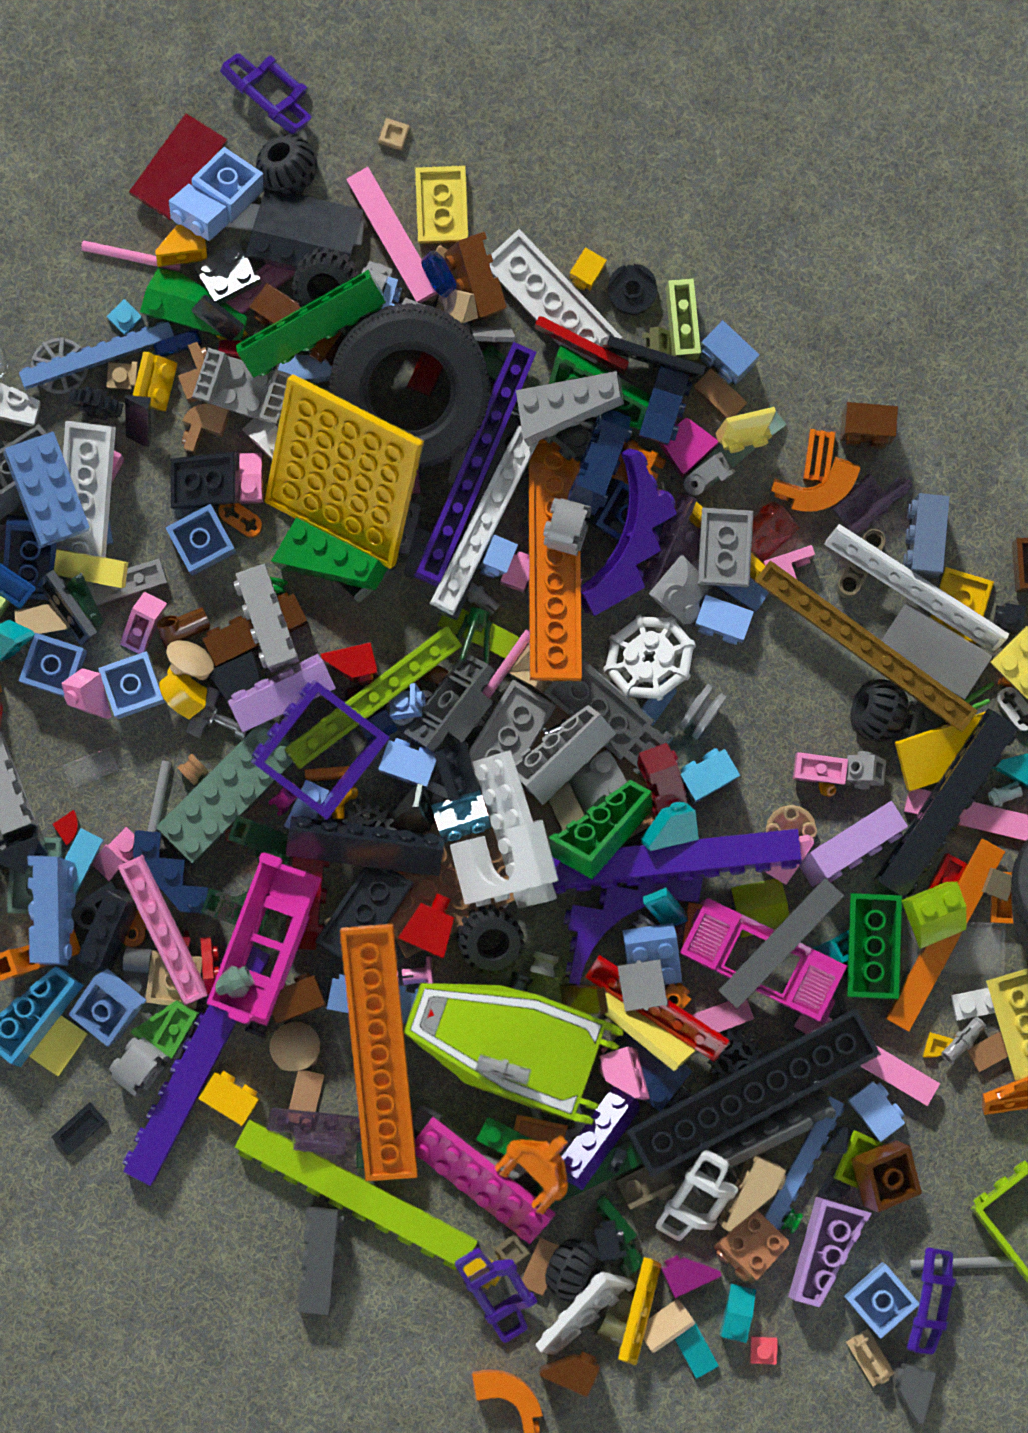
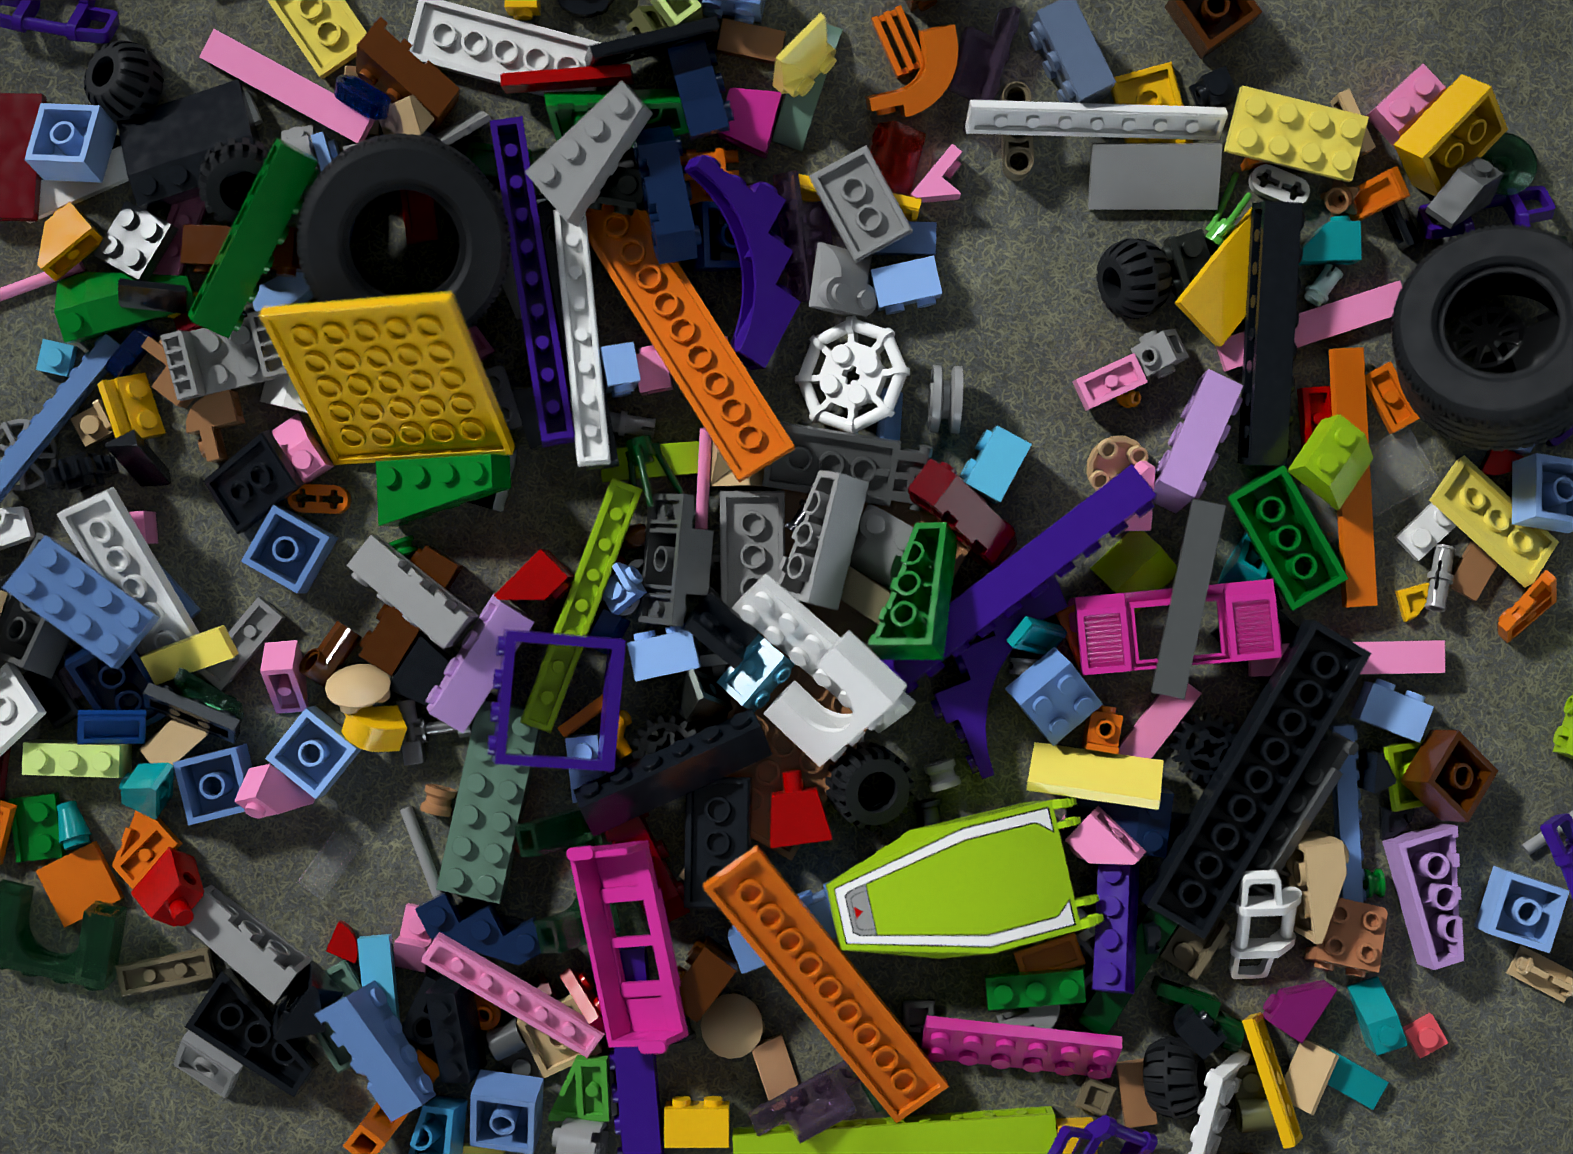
camera: 30 degrees left, 5 degrees up
(198, 212) = (57, 192): light blue brick -> none
(234, 982) = (625, 1007): sand green rock -> none
(283, 800) = (555, 775): dark pink bar -> none
(420, 975) = (823, 864): bright pink bracket -> none
(503, 1069) = (975, 928): light grey pin -> none
(543, 1164) = (1076, 998): orange connector -> none
(567, 526) = (675, 288): light grey brick -> none
(584, 998) = (1011, 789): dark brown tile -> none
(642, 985) = (1065, 737): light grey piece -> none
(668, 1016) = (1095, 750): red tile -> none
(671, 827) = (993, 547): teal slope -> none
(701, 478) = (787, 144): light grey leg -> none
(866, 646) = (1080, 217): pearl gold plate -> none
(997, 884) = (1378, 387): dark tan tile -> none

